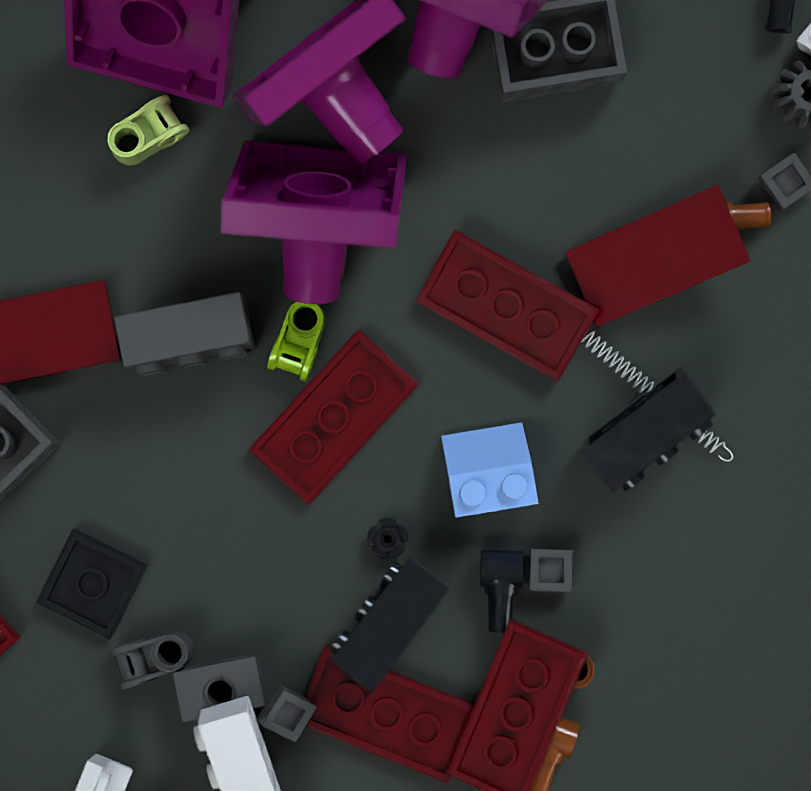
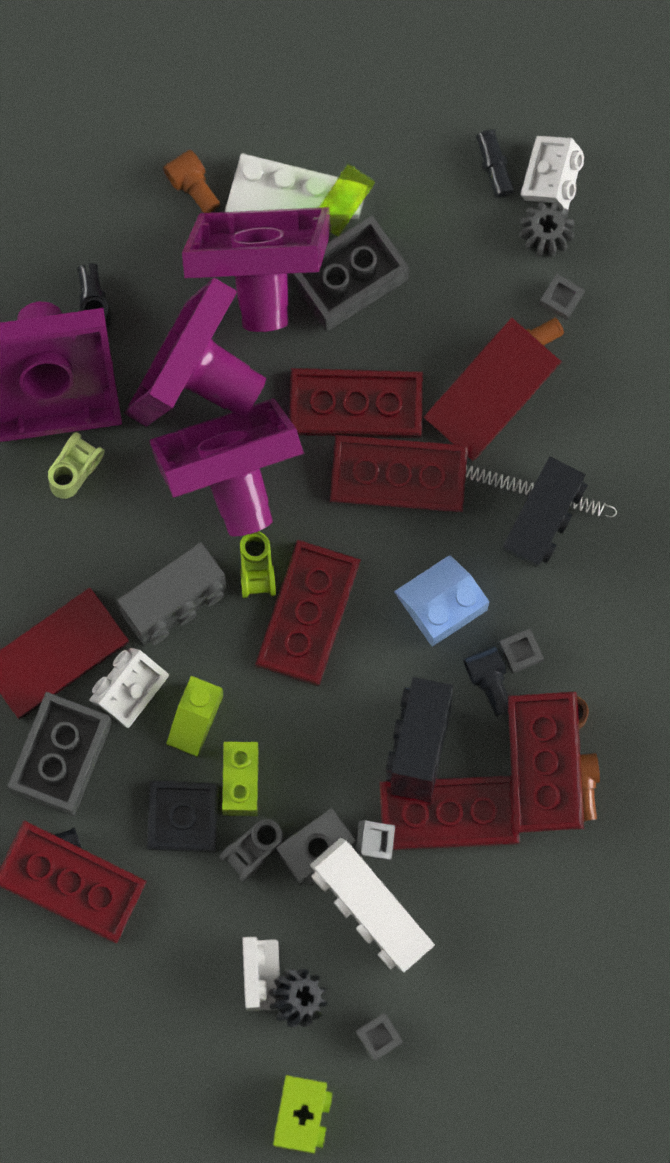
camera: 30 degrees left, 10 degrees down
(95, 412) = (128, 686): none -> white bracket
(153, 478) = (194, 716): none -> lime slope
(170, 574) = (240, 779): none -> lime brick
(379, 546) = (386, 691): black plate -> none
(496, 200) = (356, 403): none -> dark red tile

